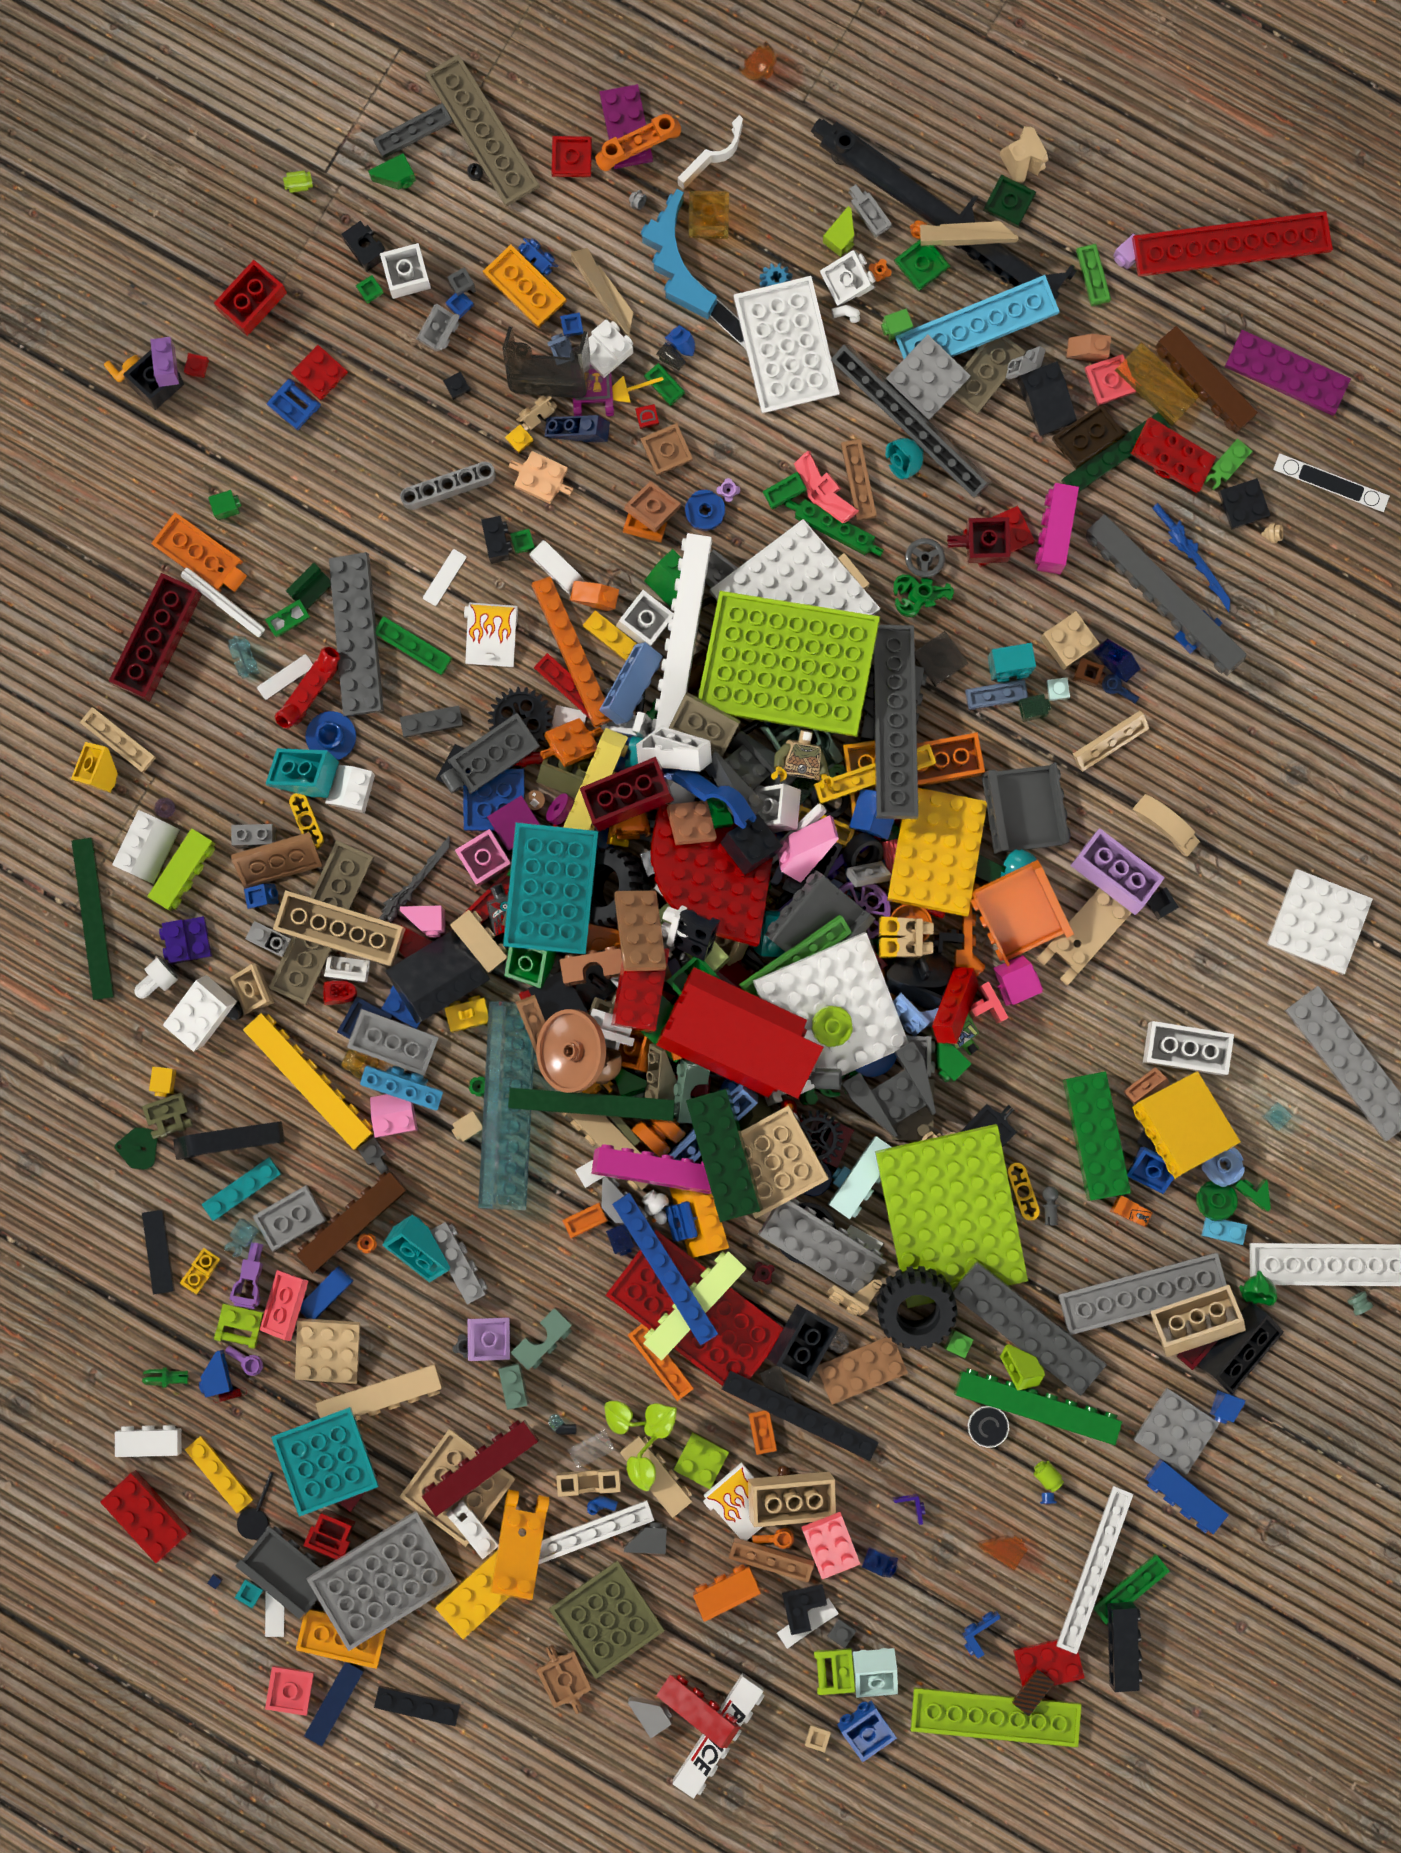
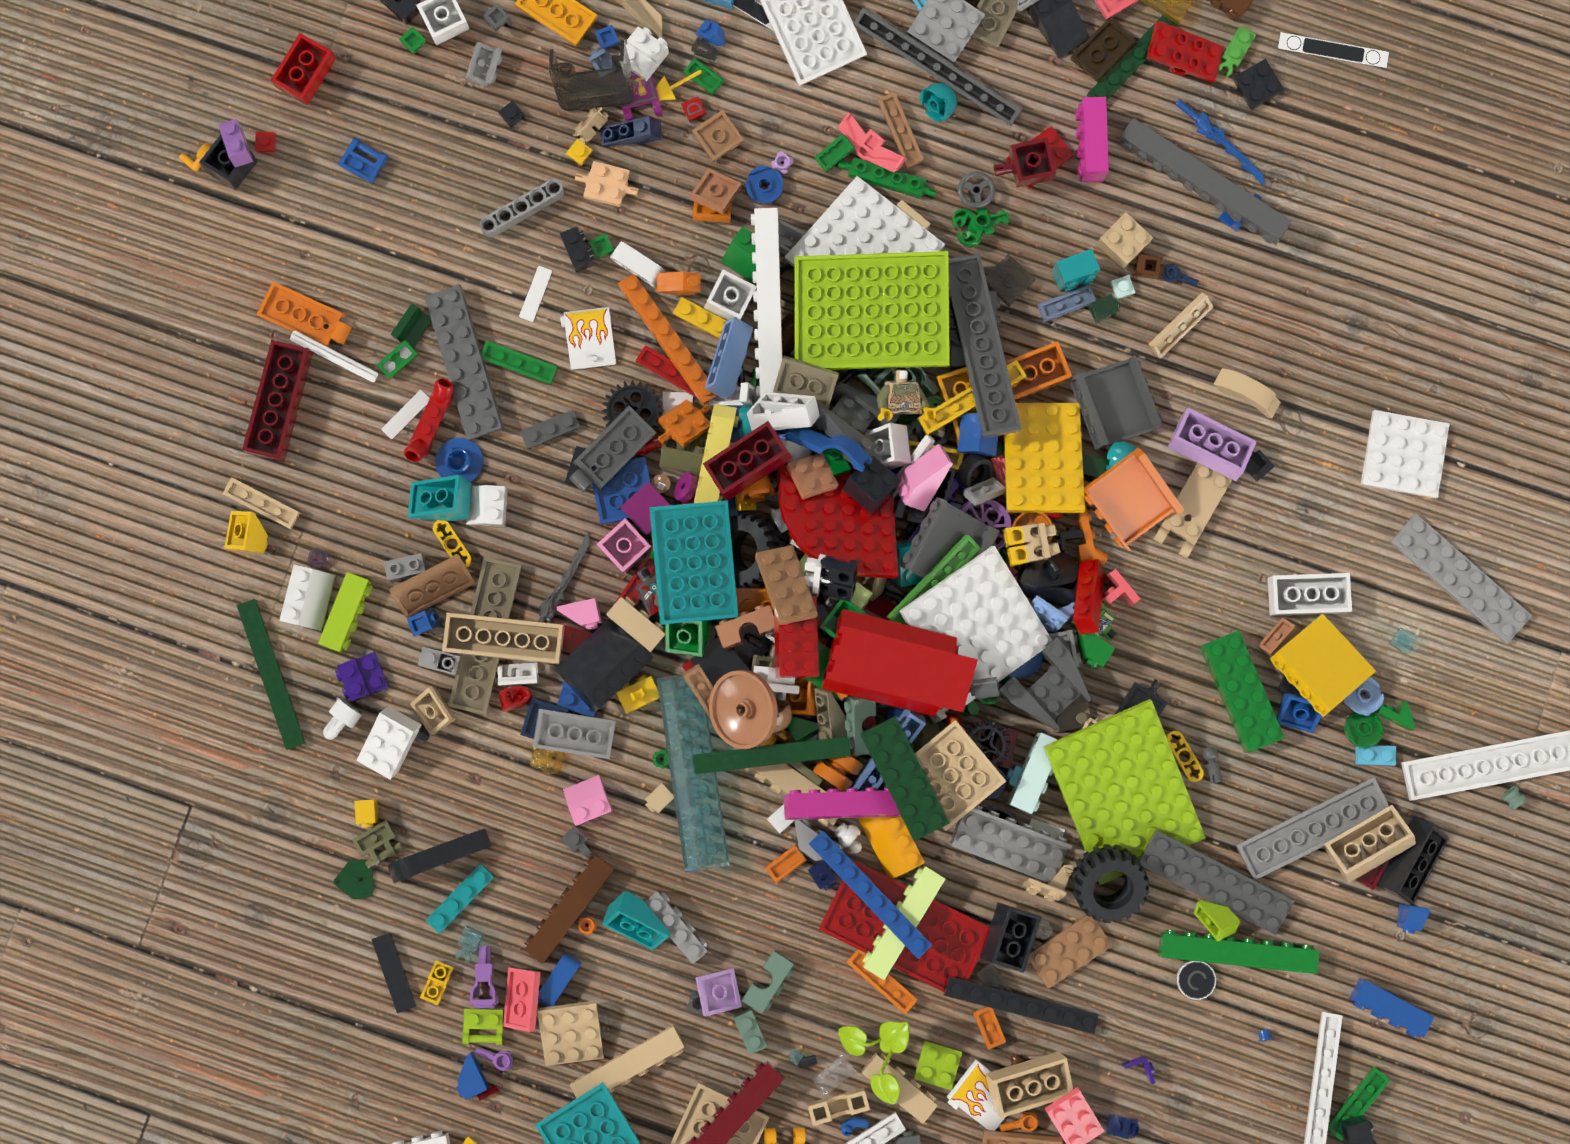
camera: 15 degrees left, 0 degrees up
(164, 1377) = (423, 1088): green arm -> none
(225, 504) = (318, 265): green brick -> none
(240, 648) = (359, 395): clear light blue hinge -> none
(289, 1218) = (510, 916): light grey tile -> none
(308, 1081) = (502, 785): yellow brick -> none
(319, 372) = (381, 126): red plate -> none
(402, 1085) = (591, 772): dark azure bracket -> none
(459, 304) = (499, 38): blue plate -> none
(681, 1221) = (875, 847): blue piece -> none
(763, 1278) = (955, 879): dark red plate -> none
(832, 1026) = (980, 638): lime tile -> none
(958, 1343) = (1154, 909): bright green brick -> none
(1005, 1549) = (1235, 1090): clear orange slope -> none
(1017, 981) = (1140, 563): dark pink plate -> none
(1048, 1476) = (1261, 1014): lime brick -> none
(1117, 659) = (1171, 249): clear blue slope -> none
(1131, 1211) = (1287, 754): orange leg -> none
(1176, 1431) = (1369, 949): light grey plate -> none
(1259, 1290) = (1420, 804): green piece -> none
(1273, 533) = (1290, 106): tan plate -> none

